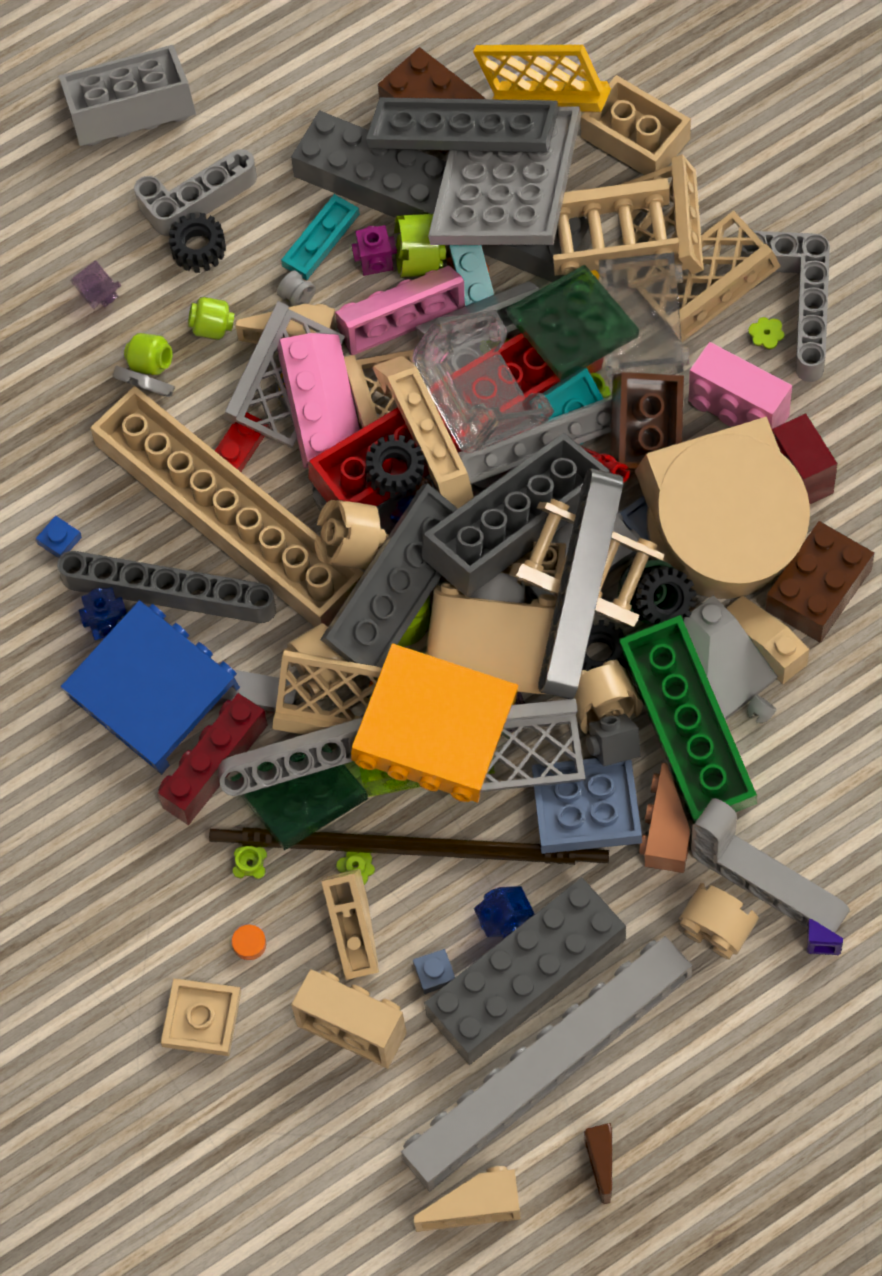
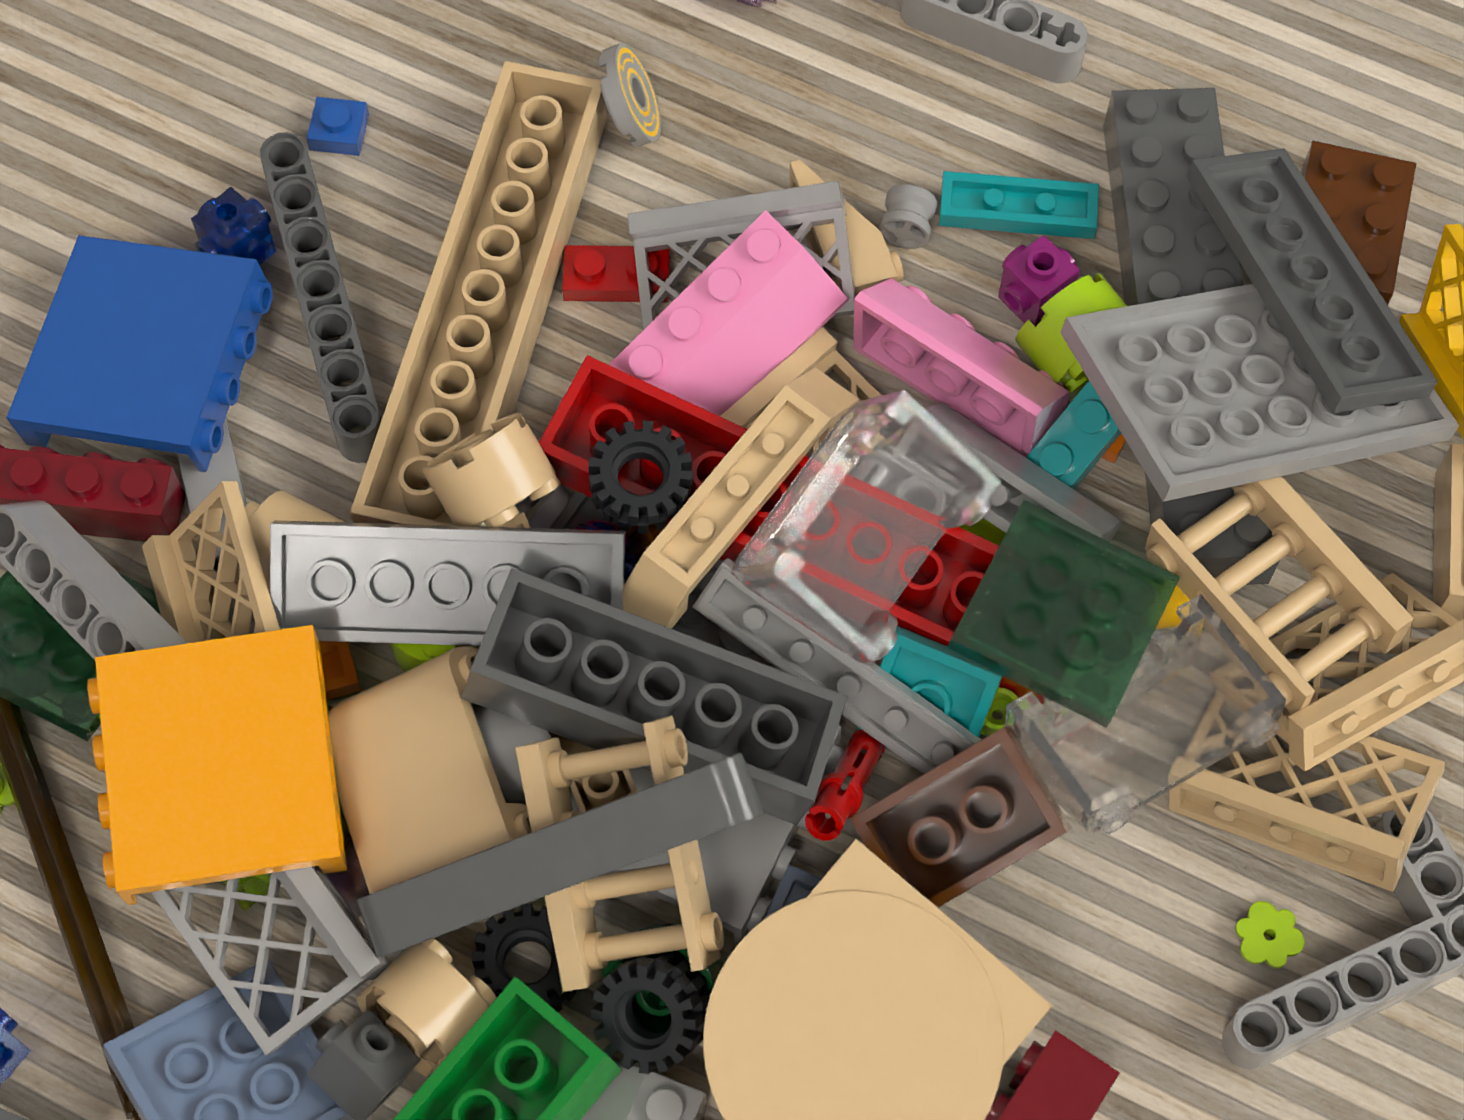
camera: 55 degrees right, 0 degrees up
(148, 354) = (686, 83): lime head -> none
(197, 257) = (914, 33): black tyre -> none
(210, 318) = (791, 129): lime head -> none
(737, 389) = (1111, 945): bright pink brick -> none

